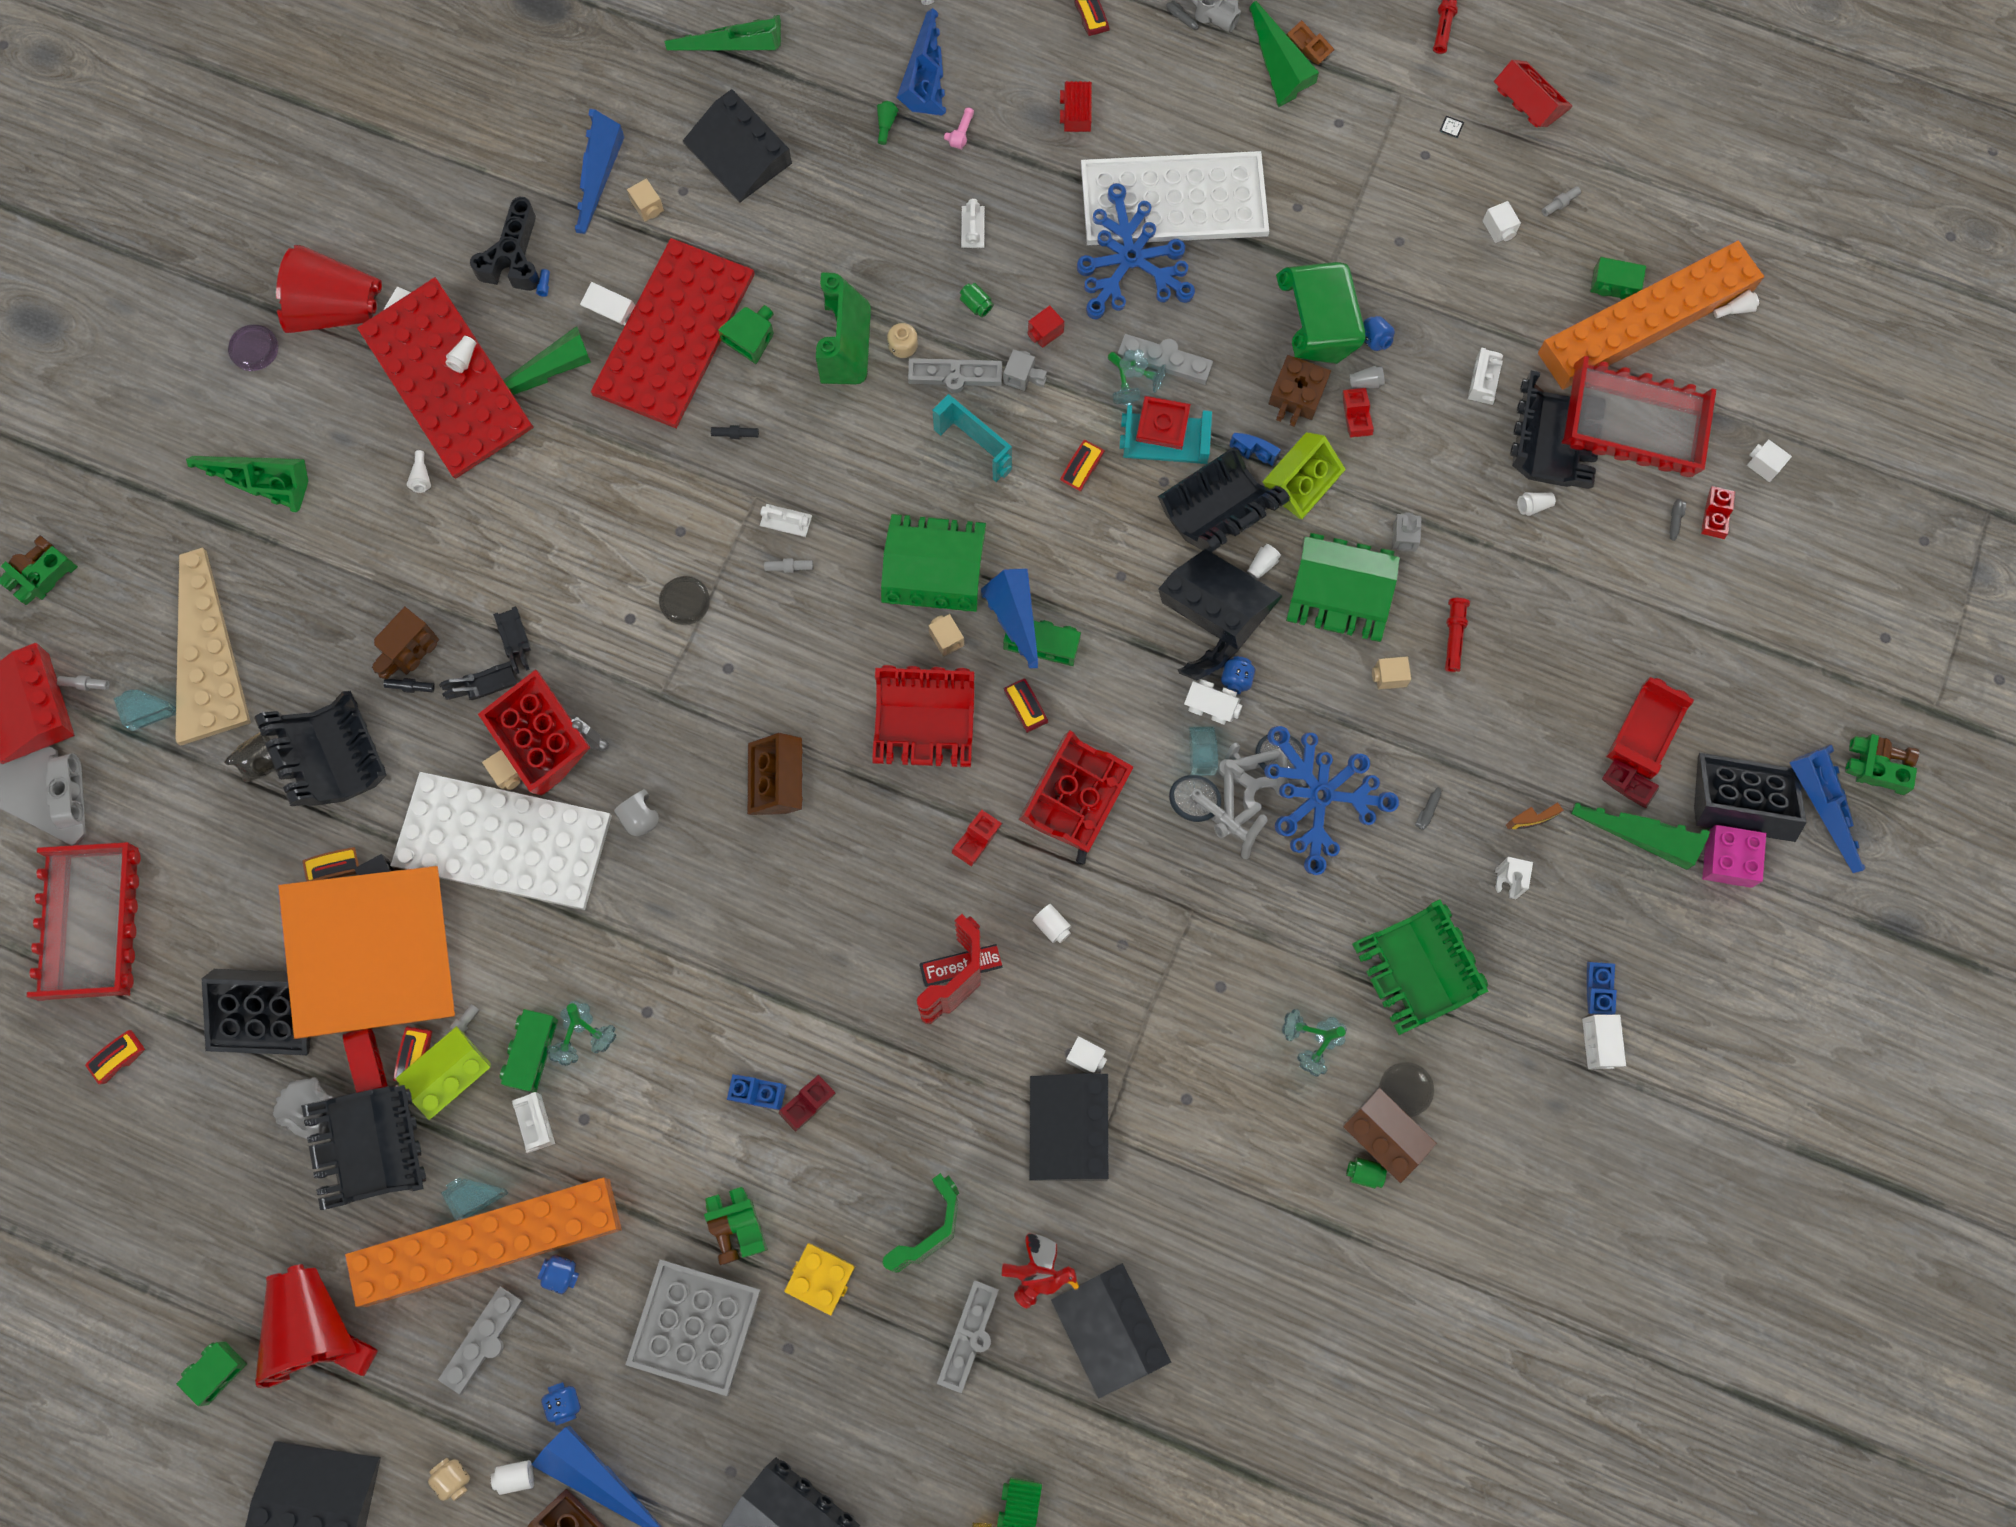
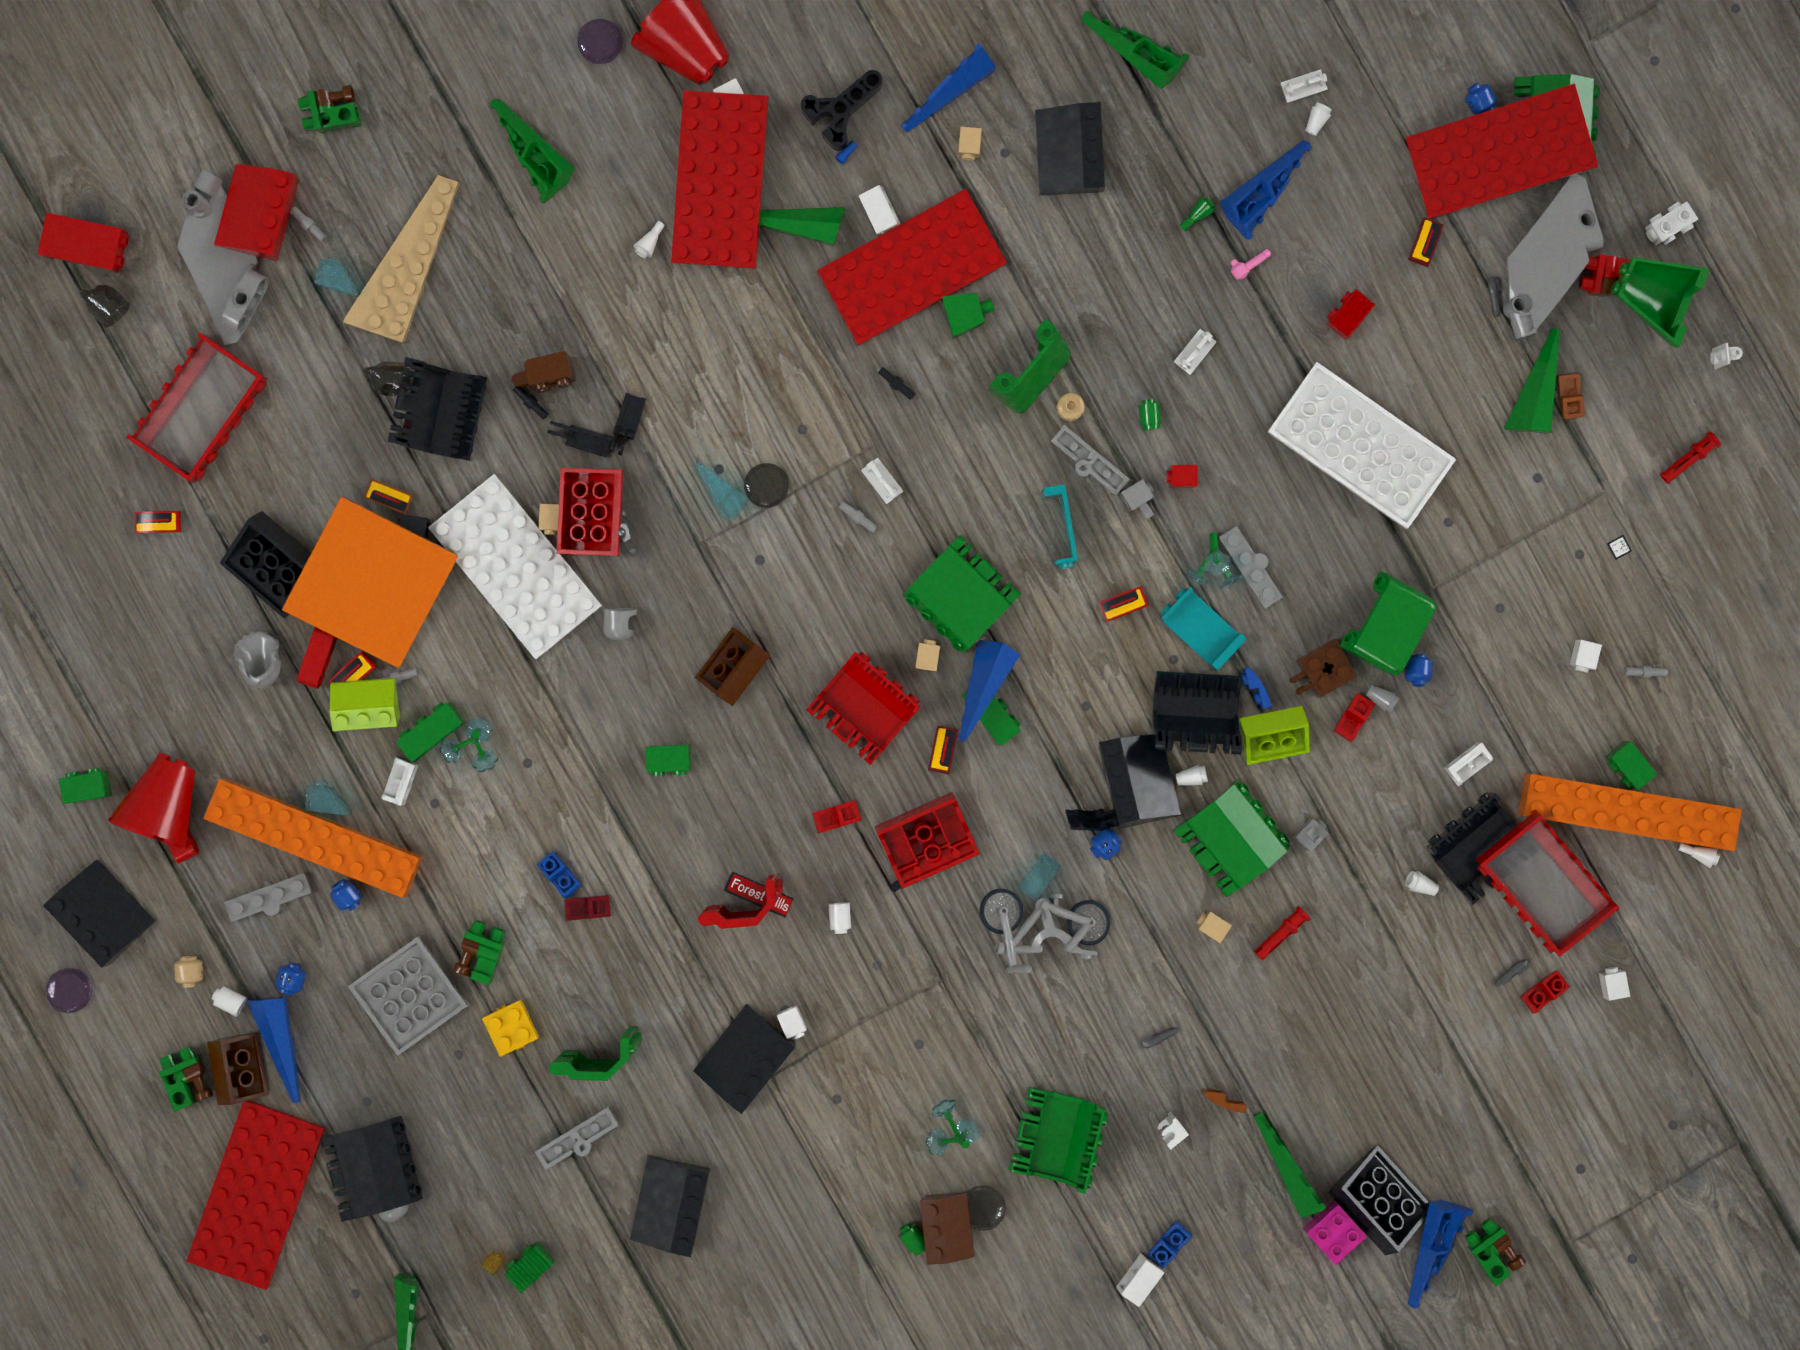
camera: 40 degrees right, 15 degrees up
(368, 1145) = (280, 716): black hinge -> none
(460, 355) = (741, 177): white cone -> none
(652, 633) = (725, 497): none -> clear light blue slope
(778, 903) = (668, 758): none -> green brick
(1039, 1274) = (651, 1137): red animal -> none
(1125, 230) = (1301, 447): blue plant -> none
(1163, 422) = (1207, 616): red tile -> none
(1221, 705) = (1072, 851): white brick -> none
(1303, 770) = (1090, 950): blue plant -> none
(1531, 93) = (1701, 570): red slope -> none
(1630, 784) = (1311, 1128): dark red slope -> none
(1650, 727) = (1357, 1102): red panel -> none

